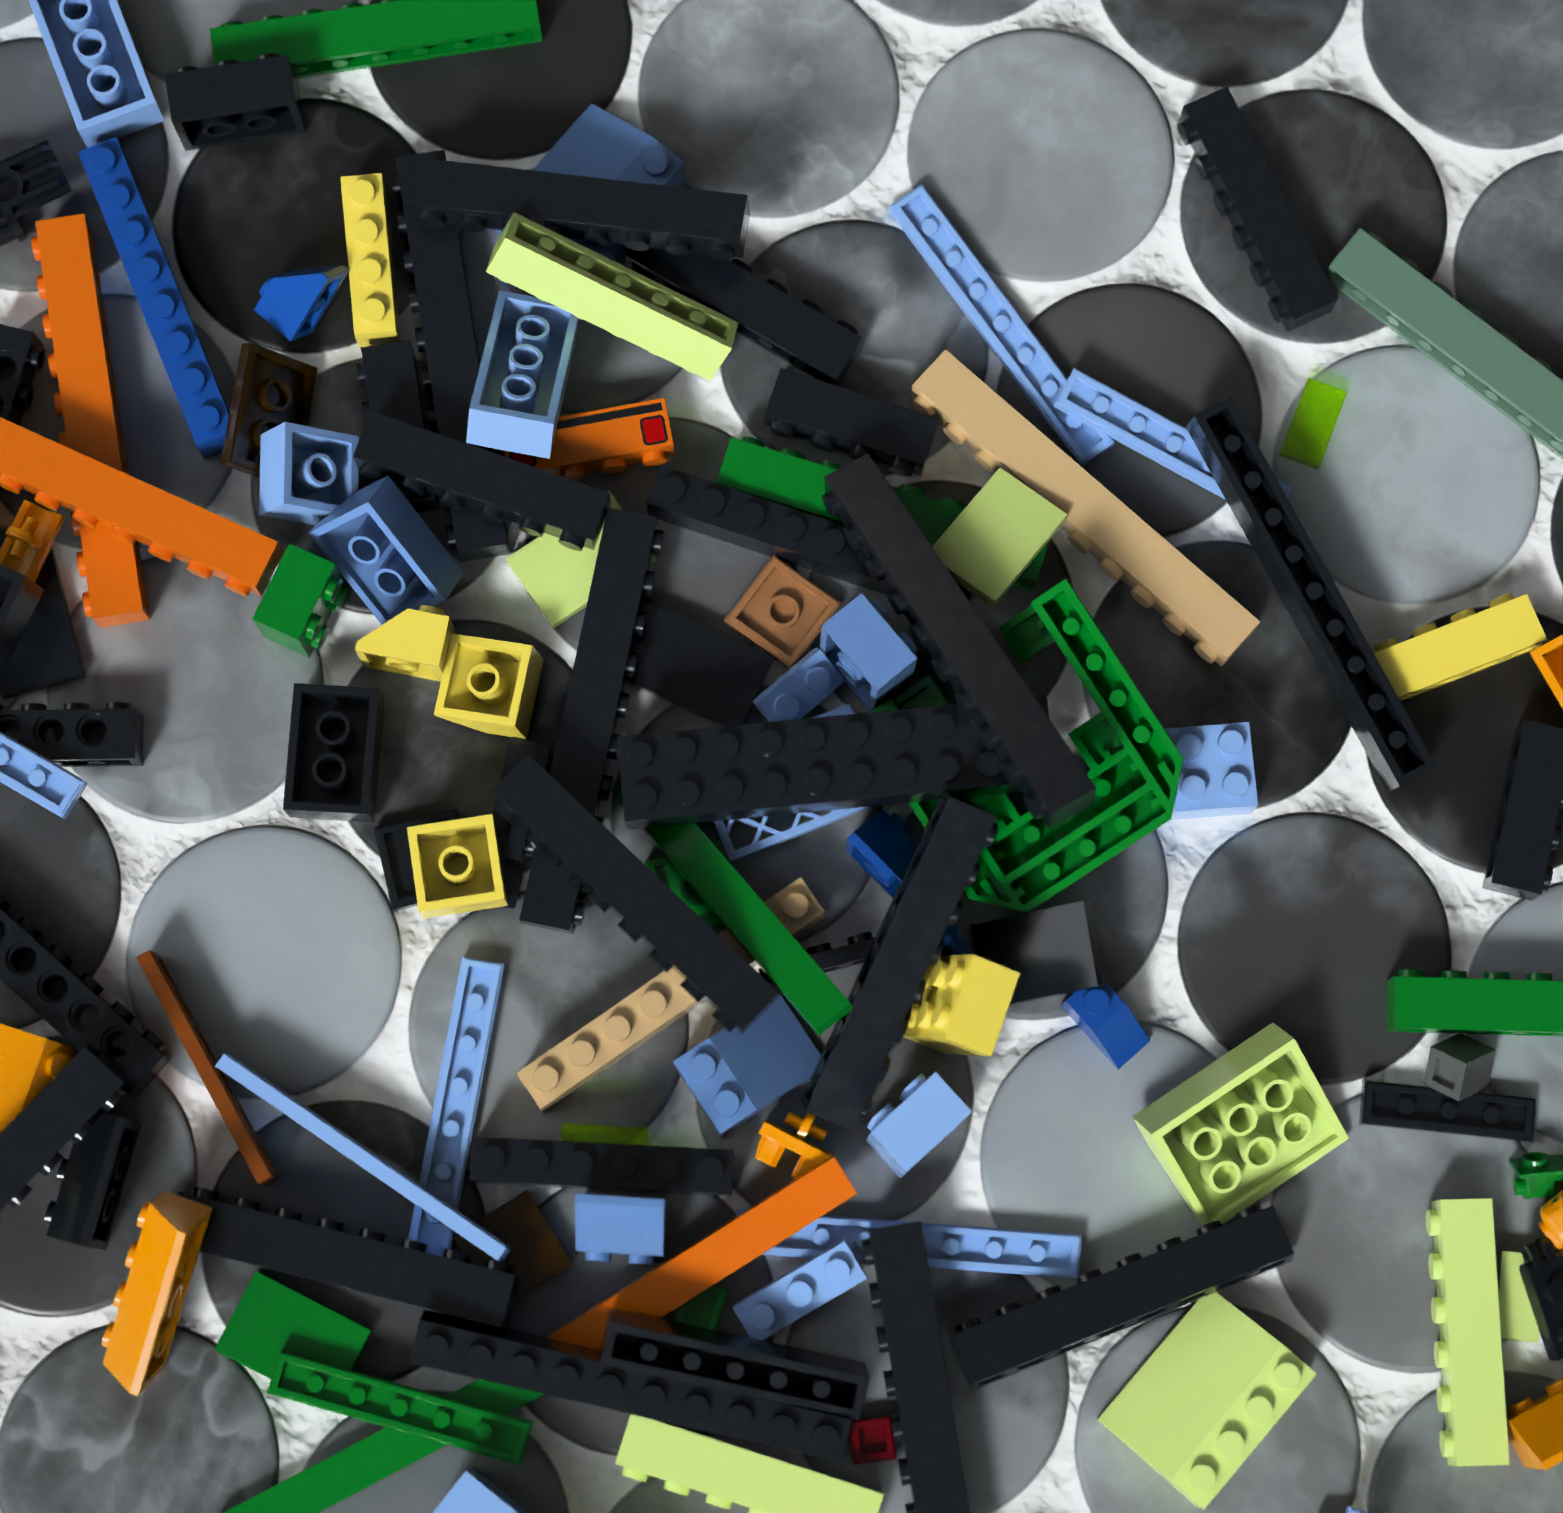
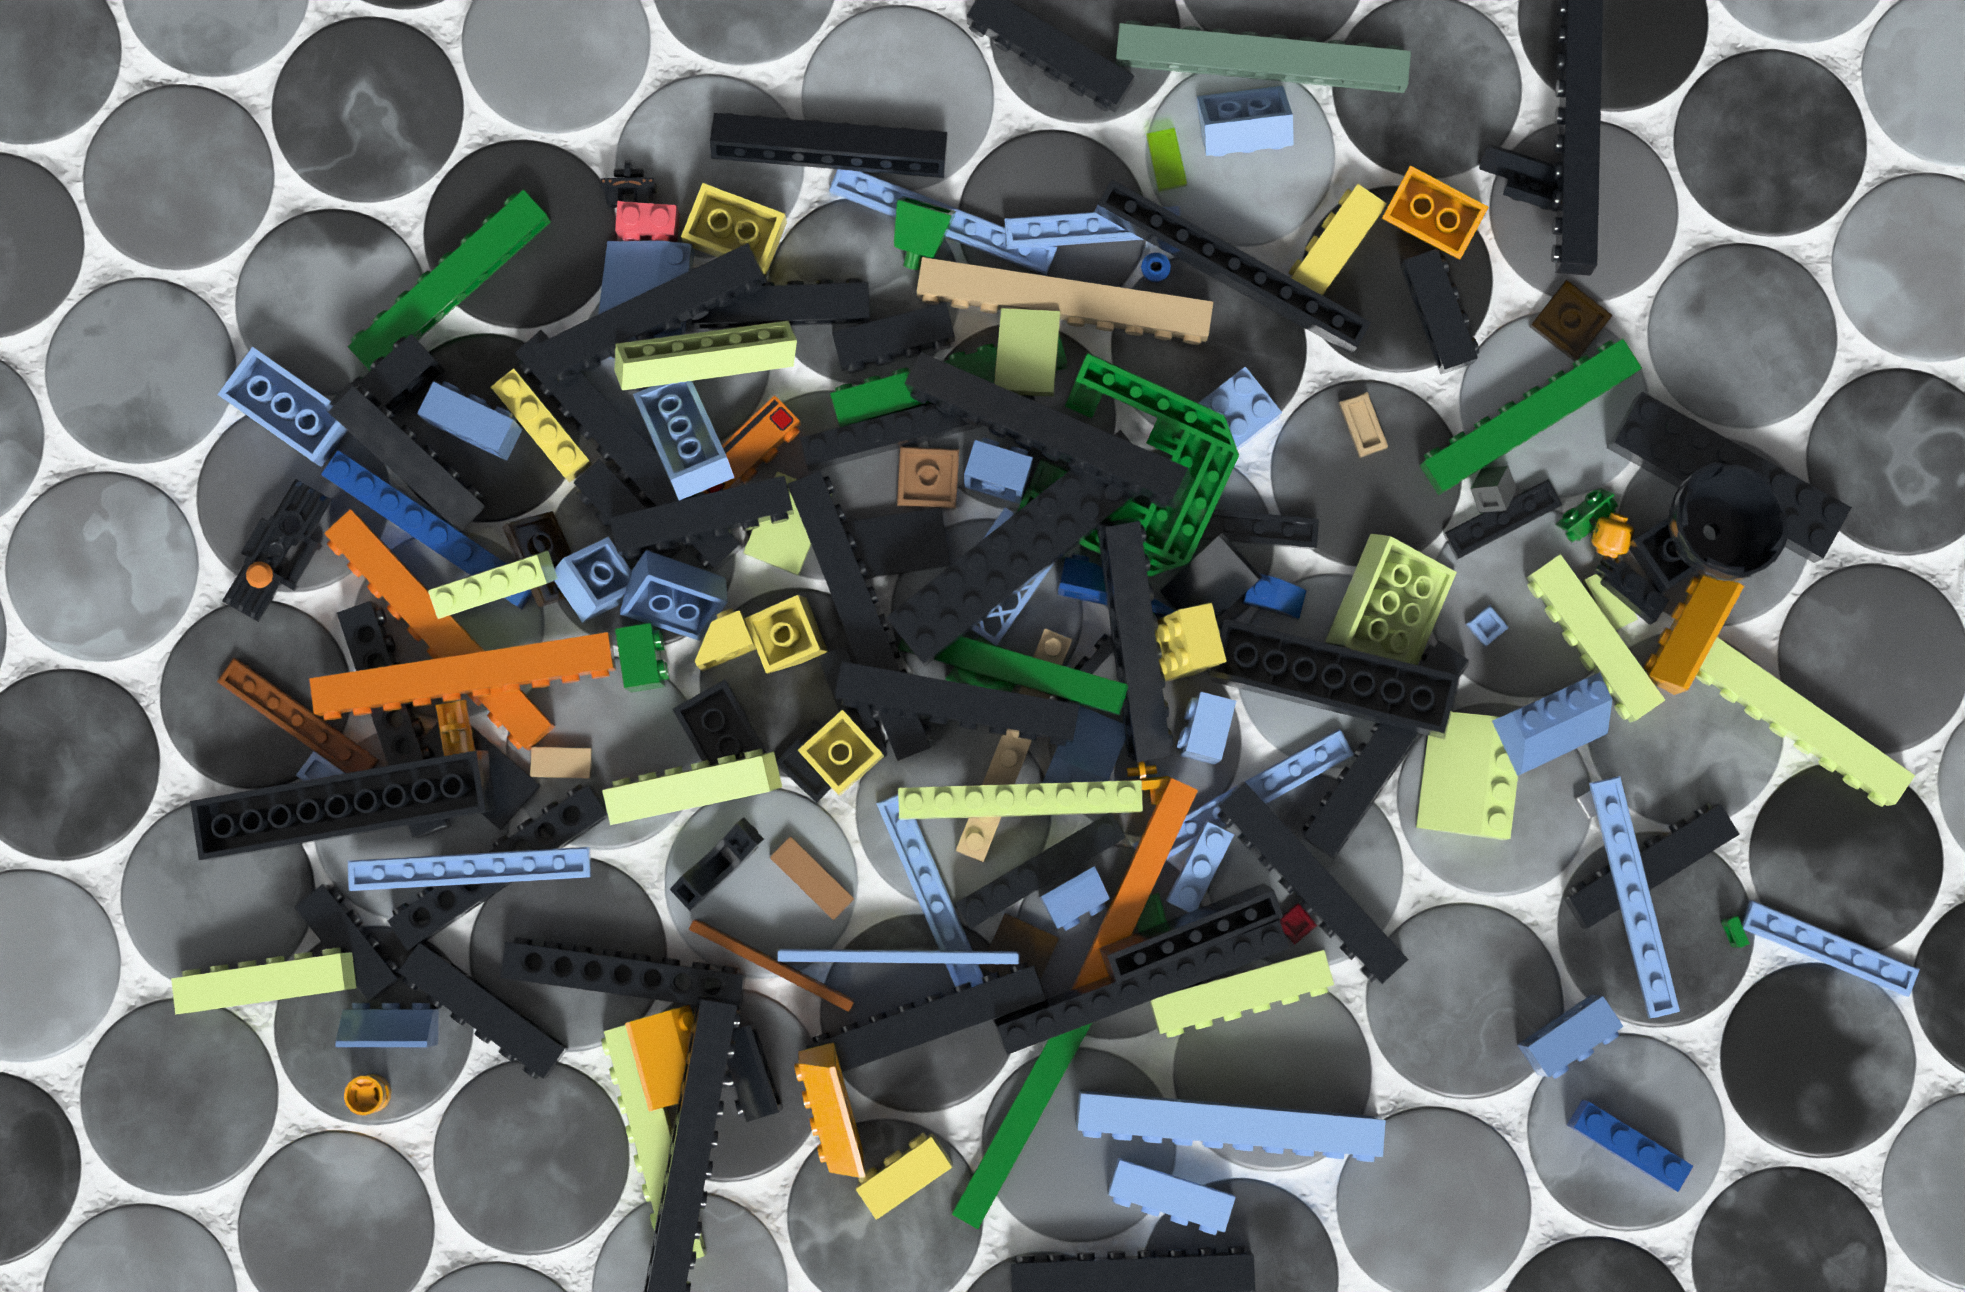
camera: 30 degrees left, 5 degrees up
(126, 665) = (561, 762): none -> tan tile
(183, 400) = (492, 584): none -> yellowish green brick
(185, 190) = (404, 456): none -> black brick
(188, 1426) = (903, 1174): none -> light yellow brick
(223, 905) = (717, 864): none -> black arch
(254, 791) = (693, 787): none -> yellowish green brick
(282, 1319) = (927, 1087): green tile -> none
(292, 199) = (470, 419): none -> medium blue brick
(299, 299) = (514, 476): blue slope -> none
(326, 995) = (812, 878): none -> medium nougat tile
(400, 1407) = (1016, 1084): green tile -> none
(605, 1134) = (1029, 851): clear neon green tile -> none
(631, 1061) = (1020, 800): none -> yellowish green brick
(652, 107) = (647, 221): none -> coral brick
(660, 50) = (615, 188): none -> black hips
(743, 158) = (726, 221): none -> light yellow brick
(799, 688) = (968, 518): light blue plate -> none
(922, 154) = (828, 145): none -> black brick
(965, 317) = (920, 229): none -> green torso
(1115, 1169) = (1336, 679): none -> black brick
(1144, 931) = (1263, 529): none -> black plate
(1214, 551) = (1155, 276): none -> blue plate
(1345, 1228) = (1487, 625): none -> light blue tile
(1348, 887) = (1363, 424): none -> tan tile
(1352, 1403) = (1555, 723): none -> medium blue slope
(1437, 437) = (1245, 121): none -> light blue slope

